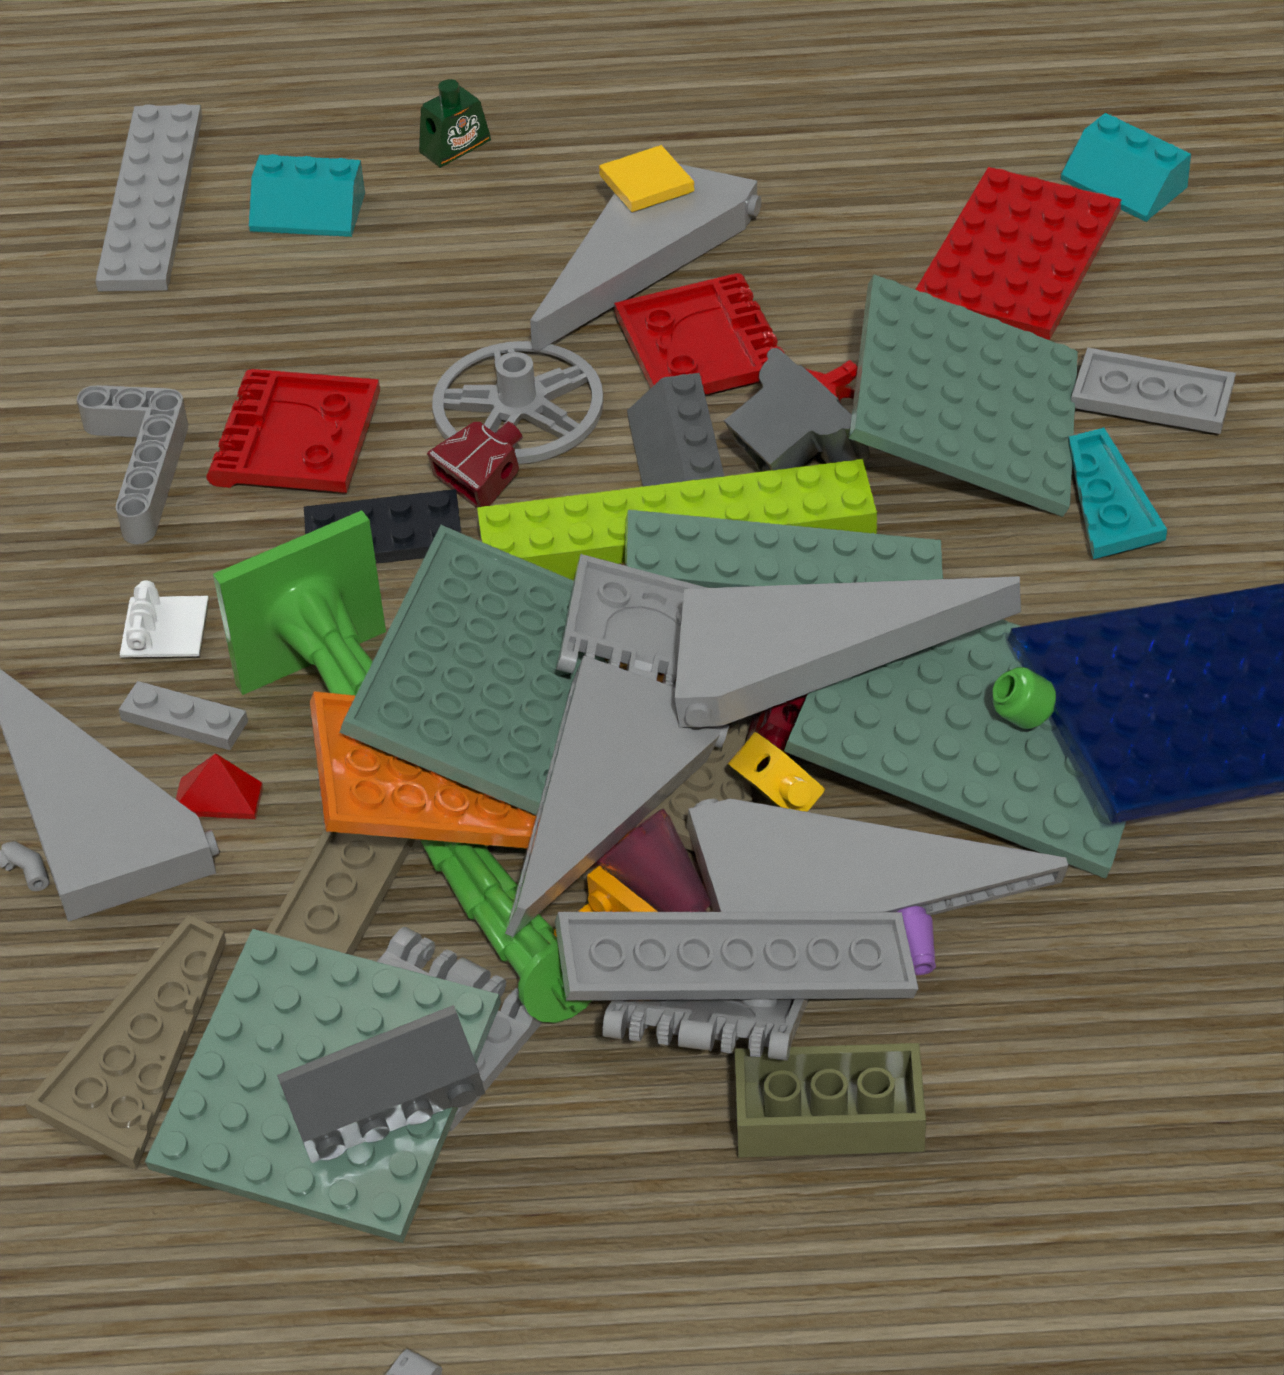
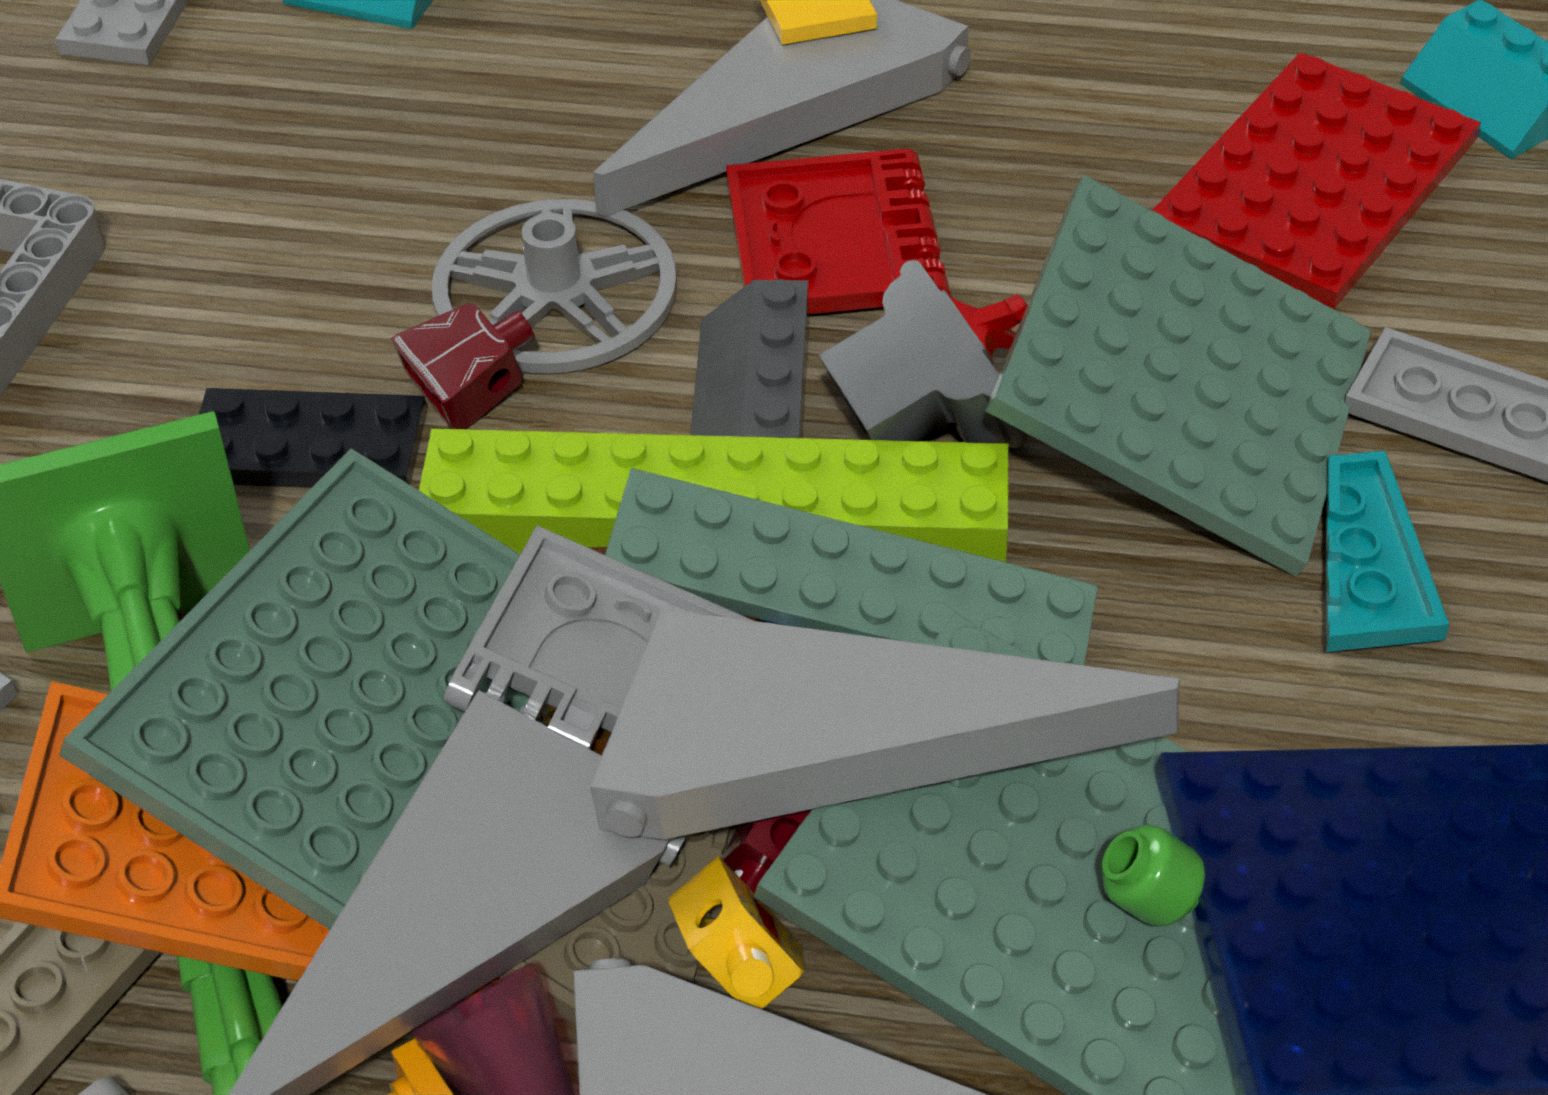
camera: 10 degrees right, 0 degrees up
(295, 431) = (236, 280): red hinge -> none

